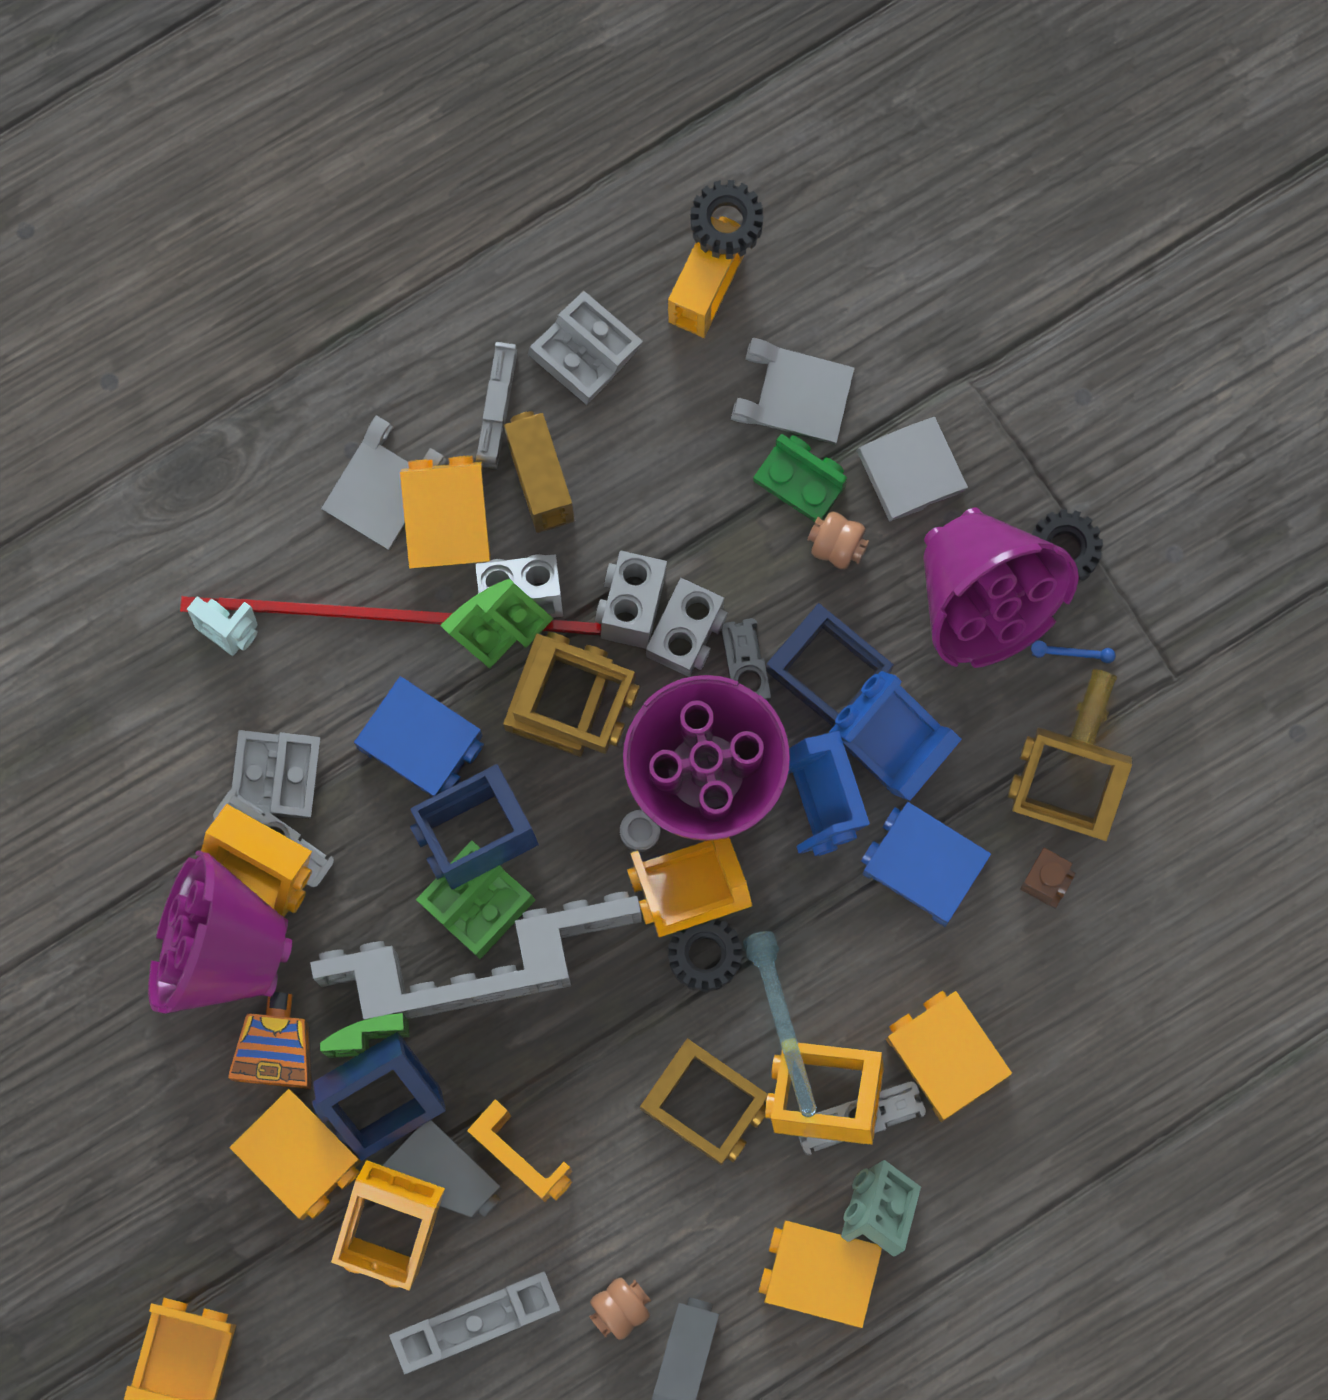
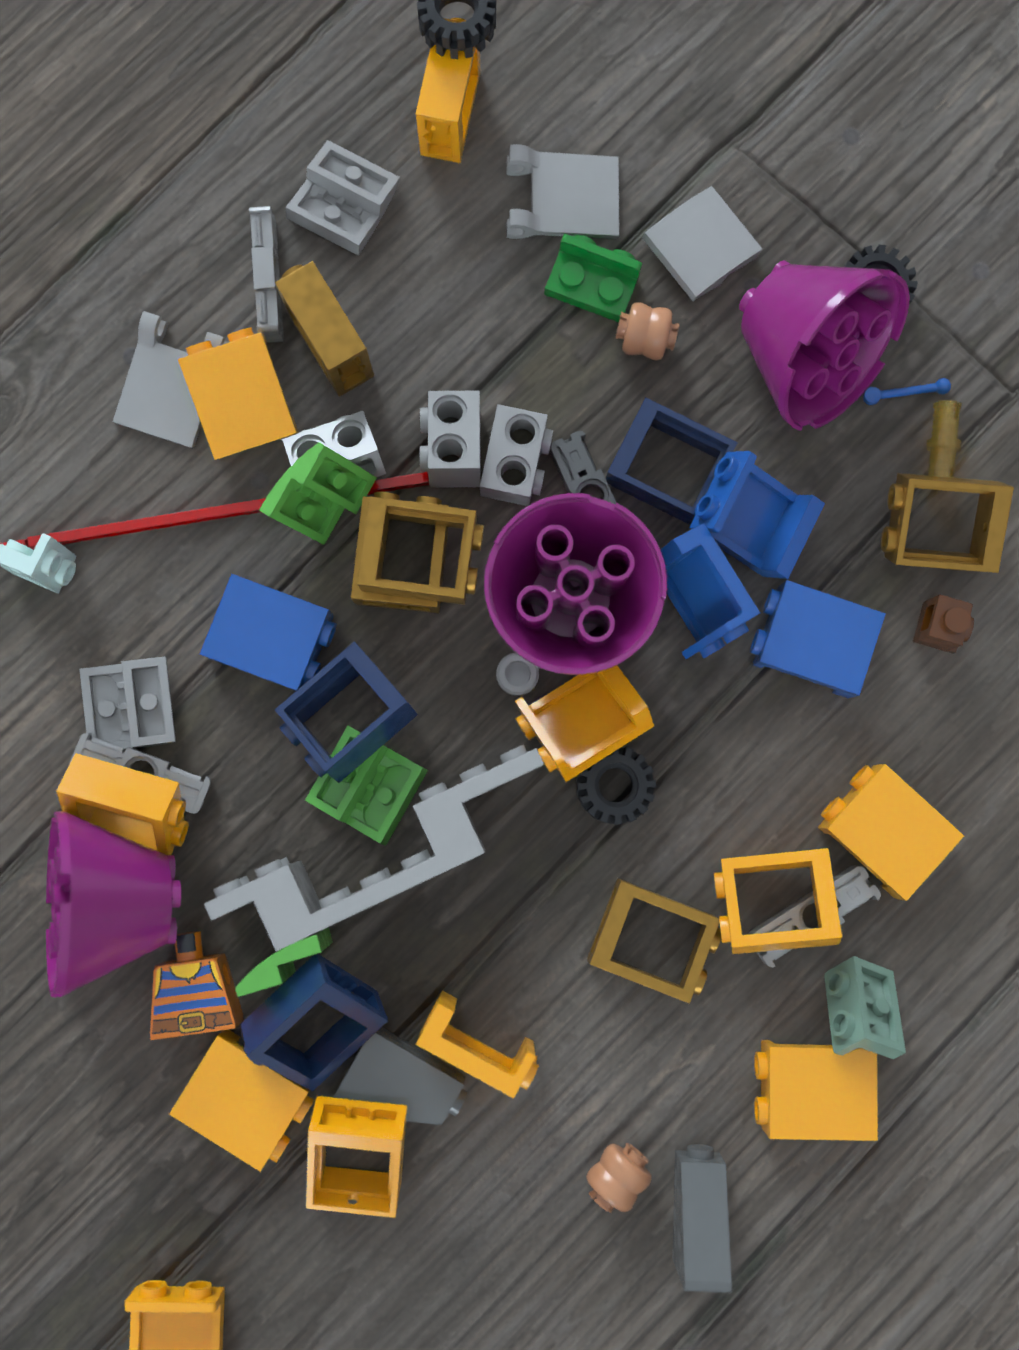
camera: 20 degrees left, 5 degrees up
(474, 1323) = (469, 1229): light grey slope -> none
(762, 950) = (674, 769): clear light blue piece -> none

